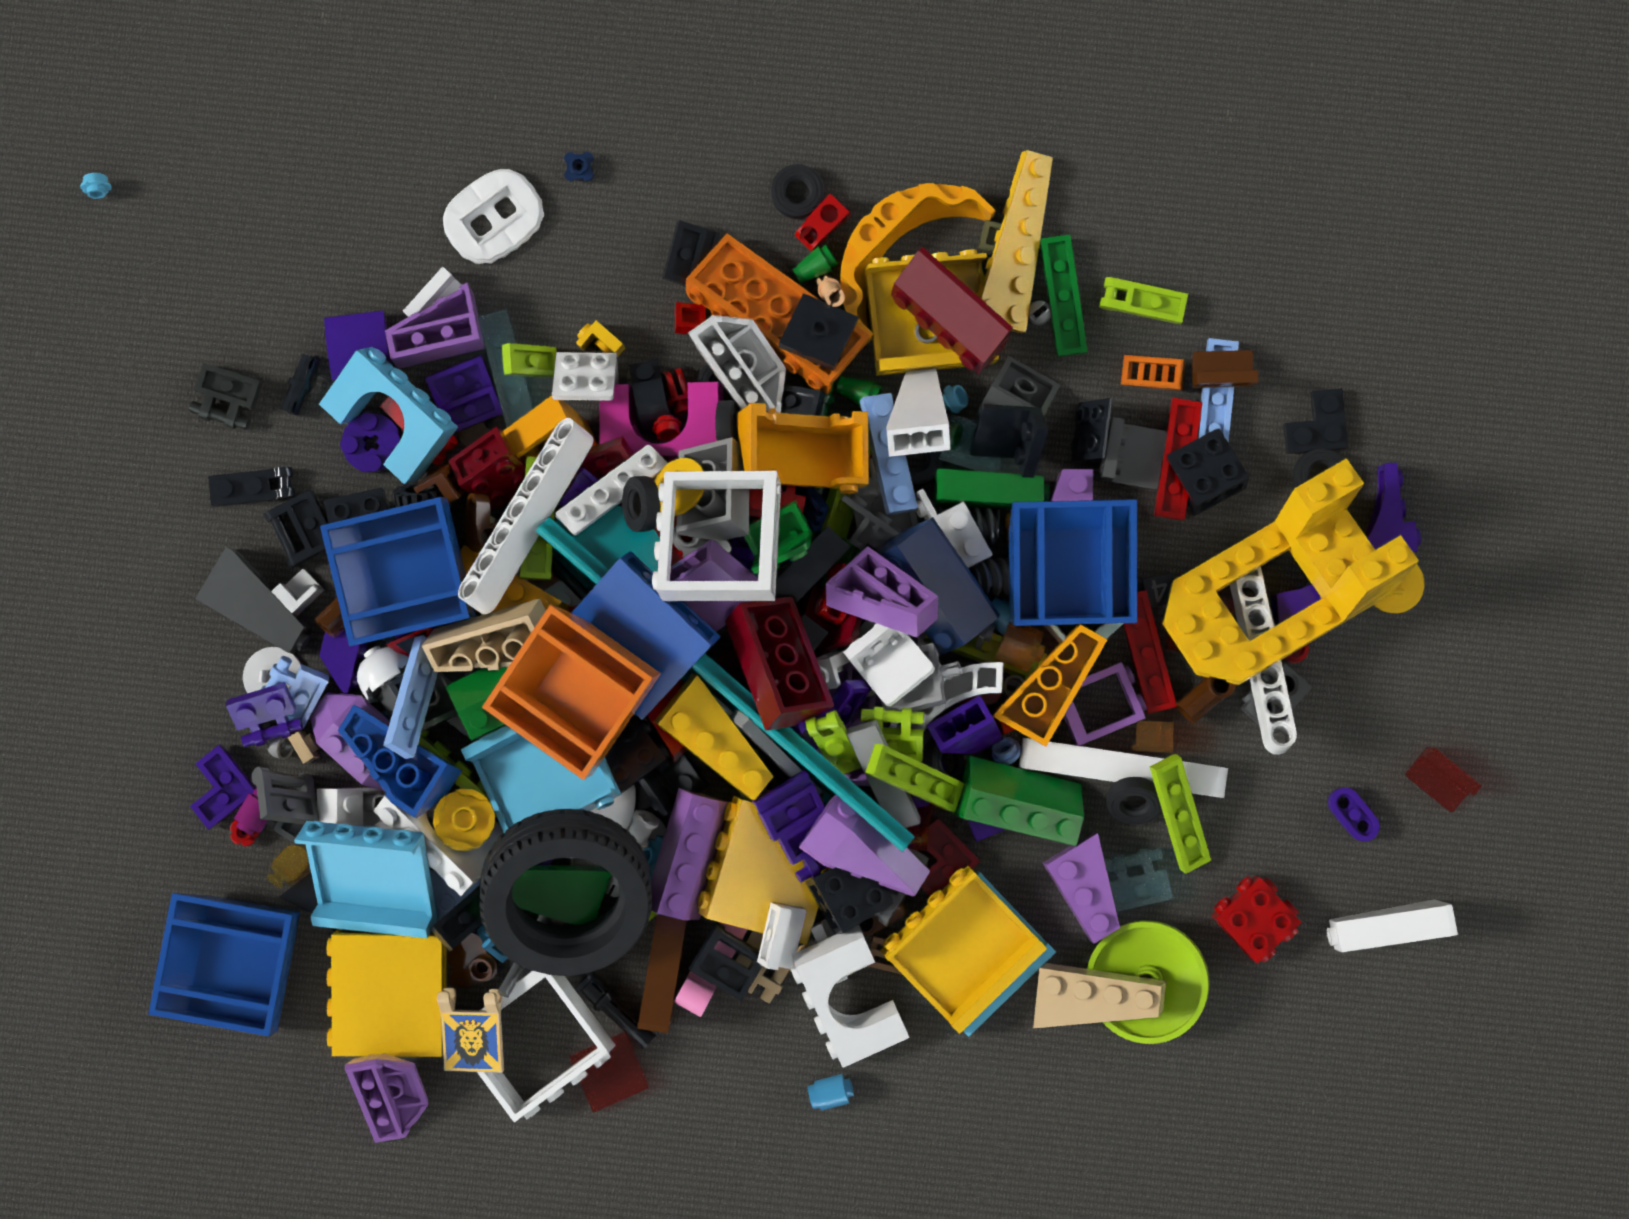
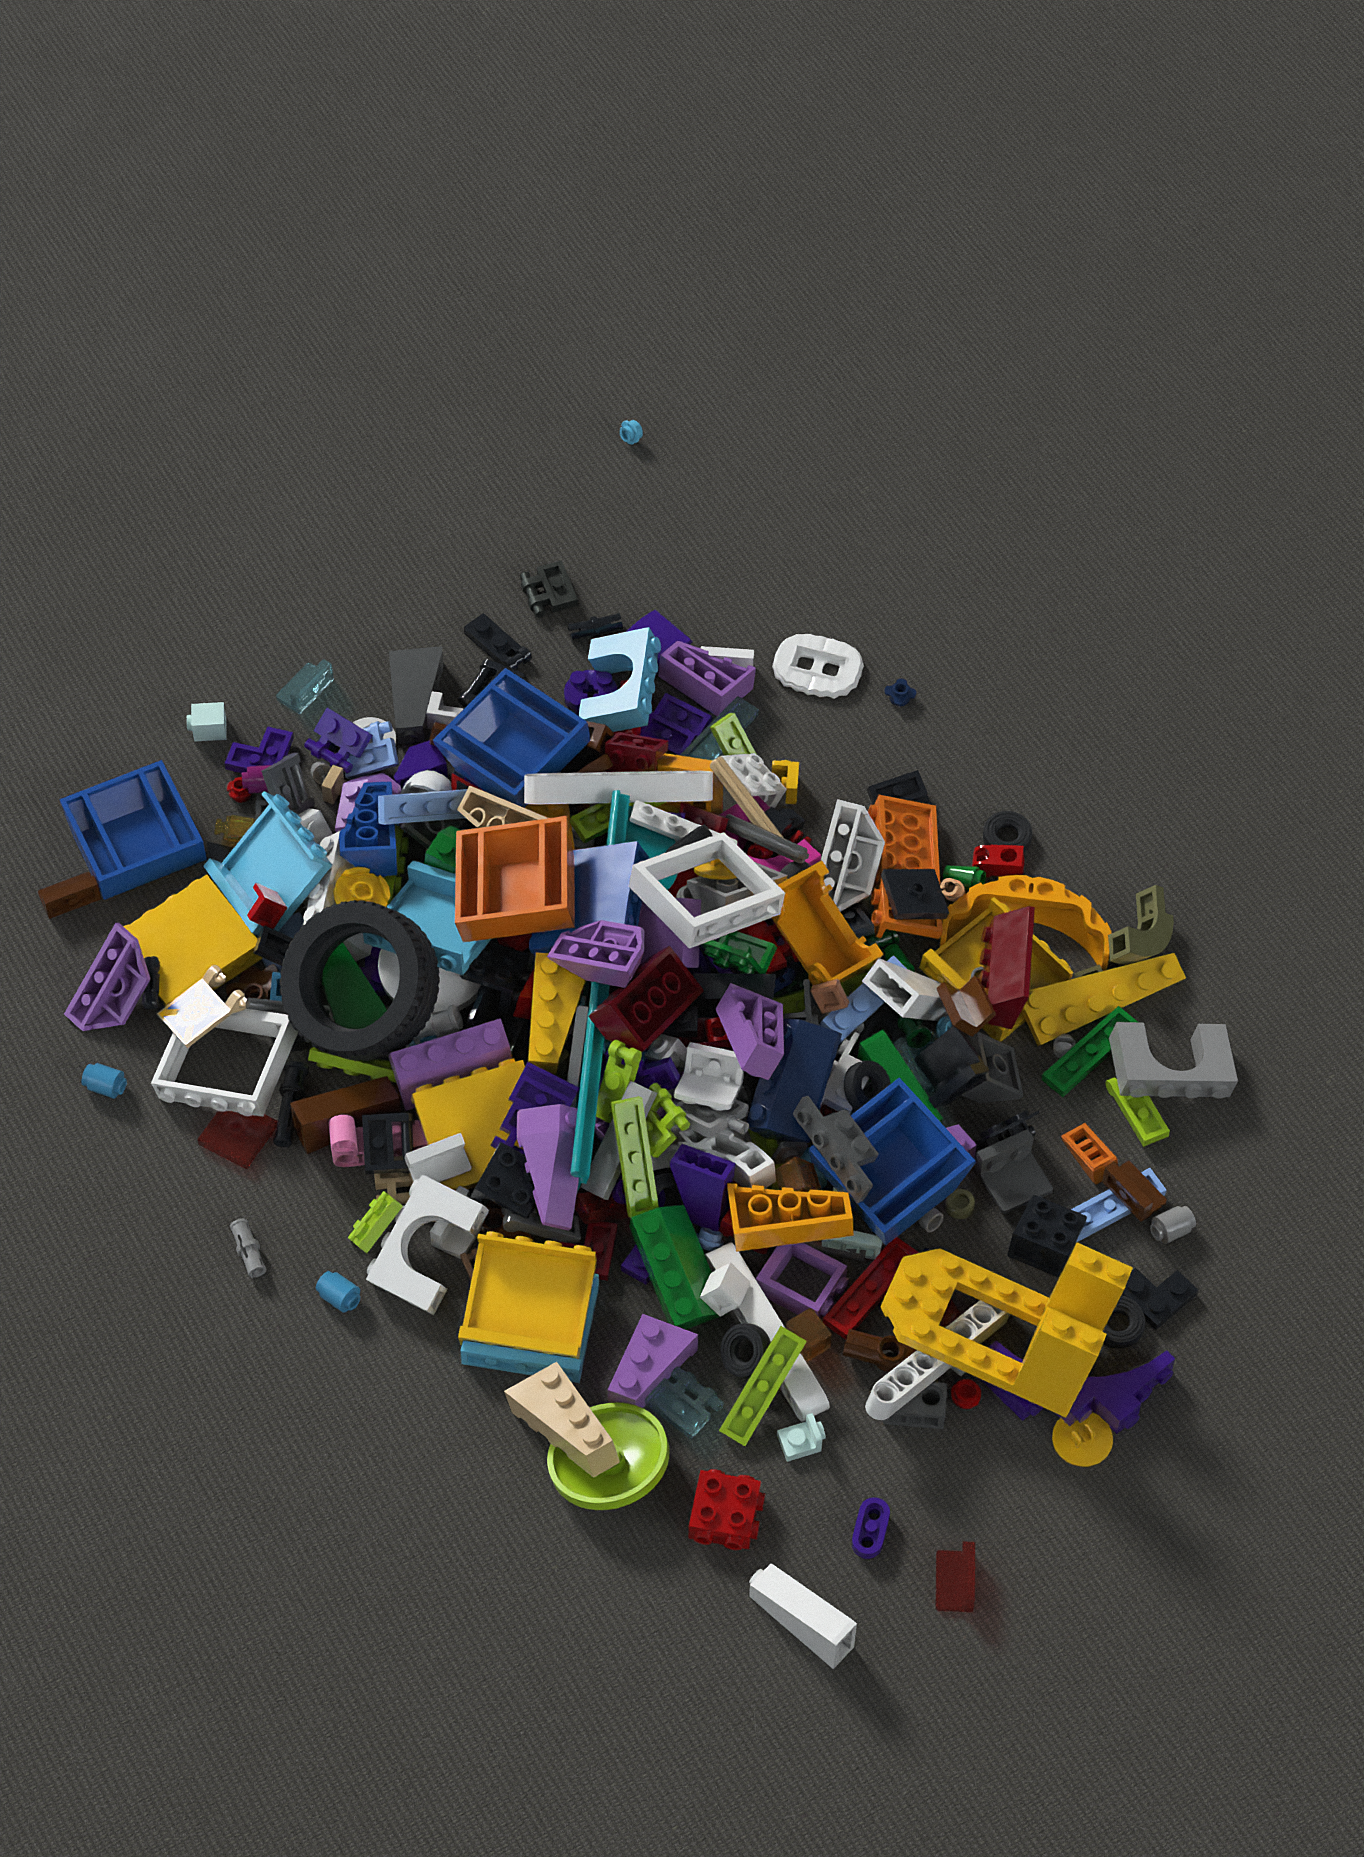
camera: 55 degrees right, 30 degrees down
(148, 812) = (208, 721): none -> light aqua brick
(169, 694) = (306, 686): none -> clear light blue panel
(247, 1061) = (69, 894): none -> reddish brown panel
(414, 907) = (267, 908): none -> red panel
(428, 1069) = (150, 997): none -> black axle
(475, 1155) = (104, 1080): none -> dark azure brick
(617, 407) = (742, 795): none -> tan axle
(670, 420) = (766, 839): none -> dark grey axle
(718, 676) = (601, 952): none -> medium lavender wedge
(731, 1138) = (248, 1248): none -> light grey pin
(793, 1023) = (375, 1221): none -> lime plate
(875, 491) = (829, 996): none -> nougat tile
(967, 378) = (968, 1007): none -> reddish brown panel
(973, 533) = (853, 1080): none -> black tyre
(995, 154) = (1152, 932): none -> olive arch
(1040, 599) = (840, 1144): none -> dark grey bracket
(1072, 779) = (725, 1289): none -> white panel
(1124, 277) = (1143, 1075): none -> light grey arch
(1181, 430) = (1067, 1194): red plate -> none
(1236, 809) = (801, 1438): none -> light aqua bracket
(1271, 361) = (1172, 1224): none -> light grey brick

